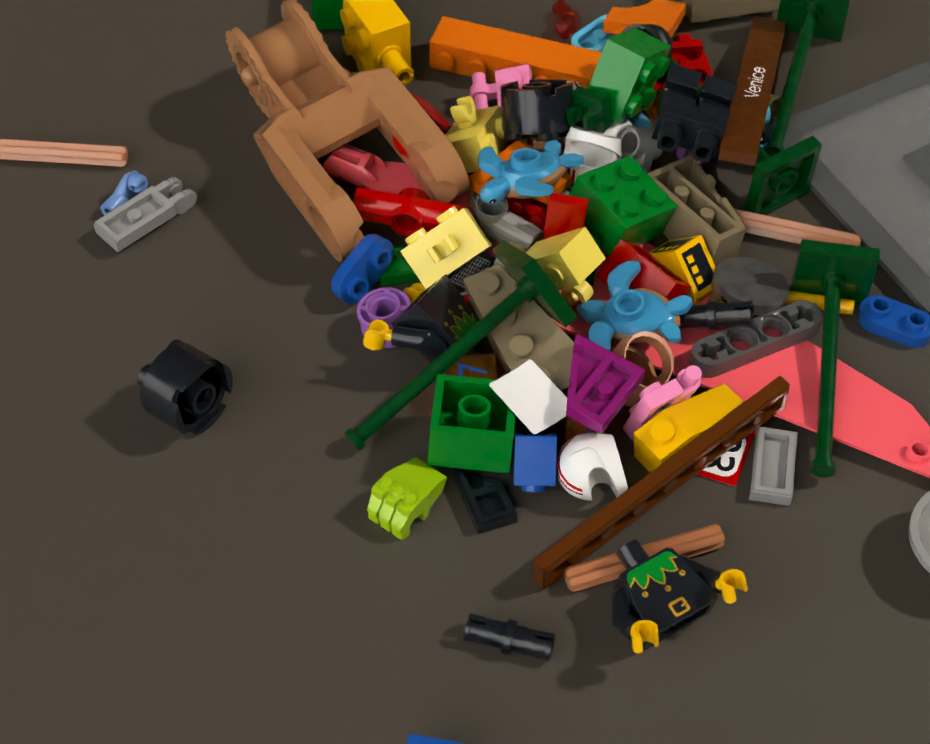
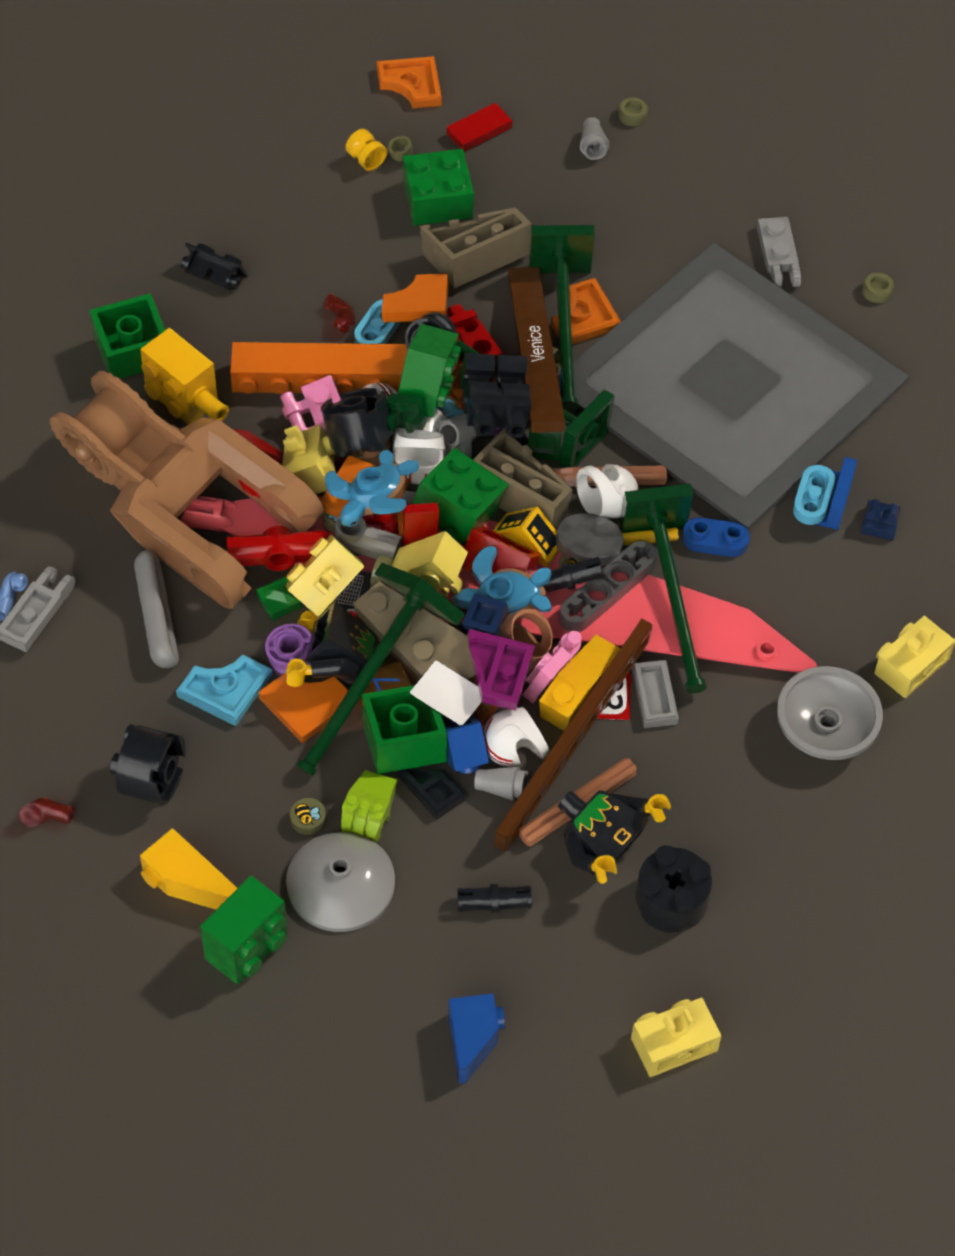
camera: 20 degrees left, 5 degrees up
(61, 408) = (44, 810): none -> clear red arm
(180, 516) = (184, 872): none -> yellow slope
(210, 588) = (244, 930): none -> green brick
(264, 244) = (156, 609): none -> light grey piece
(305, 341) = (225, 690): none -> medium azure tile
(336, 490) = (307, 816): none -> olive tile
(347, 588) = (340, 899): none -> light grey dish
(362, 268) = (255, 612): blue plate -> none
(377, 374) = (304, 707): none -> orange tile
(563, 510) = (503, 782): none -> light grey cone
(602, 324) = (485, 614): none -> dark blue tile
(722, 685) = (673, 889): none -> black brick
(734, 181) = (545, 445): none -> dark green tile
(784, 249) = (608, 496): none -> white helmet
(824, 74) = (590, 312): none -> orange tile

